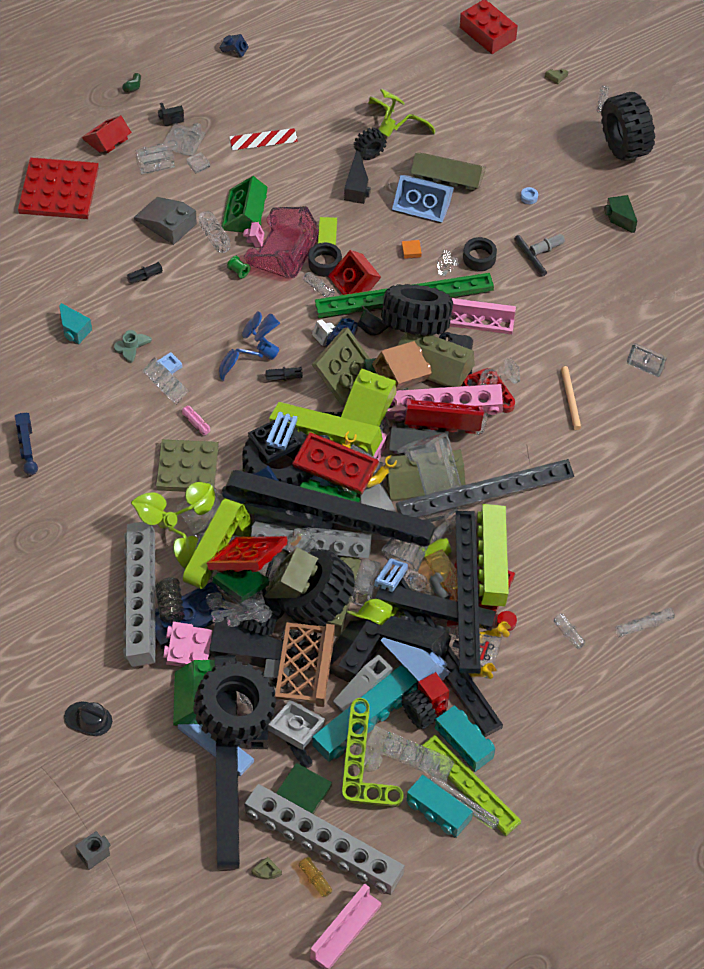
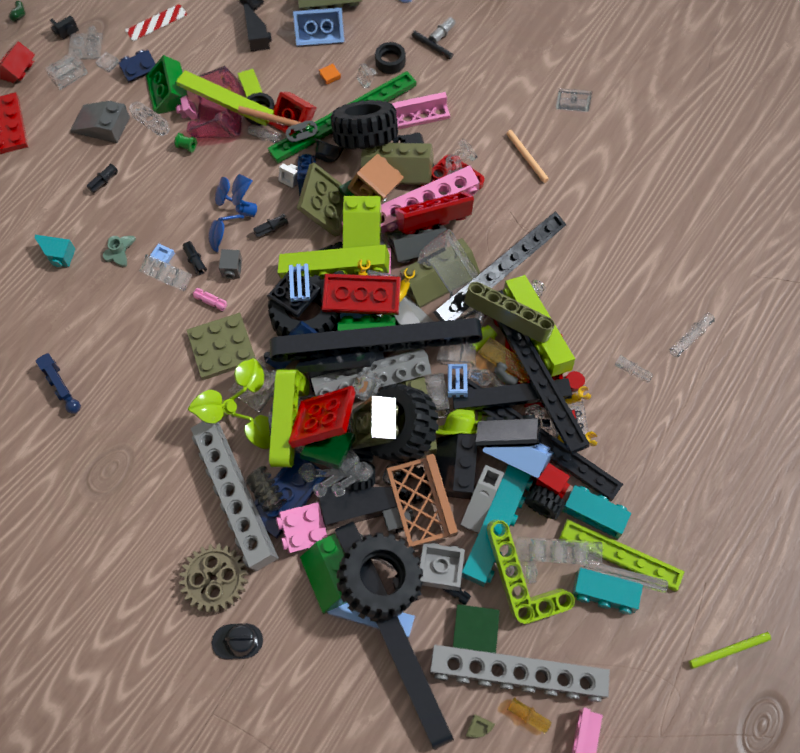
camera: 20 degrees left, 10 degrees up
(91, 658) = (228, 588): none -> dark tan gear
(198, 377) = (194, 258): none -> black axle
(225, 176) = (137, 65): none -> dark blue bracket
(229, 394) = (230, 263): none -> dark grey brick
(294, 238) = (220, 95): none -> lime tile
(330, 272) = (266, 116): none -> nougat bar
(353, 299) = (299, 127): none -> dark grey beam
(465, 528) = (509, 312): none -> olive beam
(513, 524) = (539, 287): none -> clear bush
(528, 901) = (729, 650): none -> lime bar

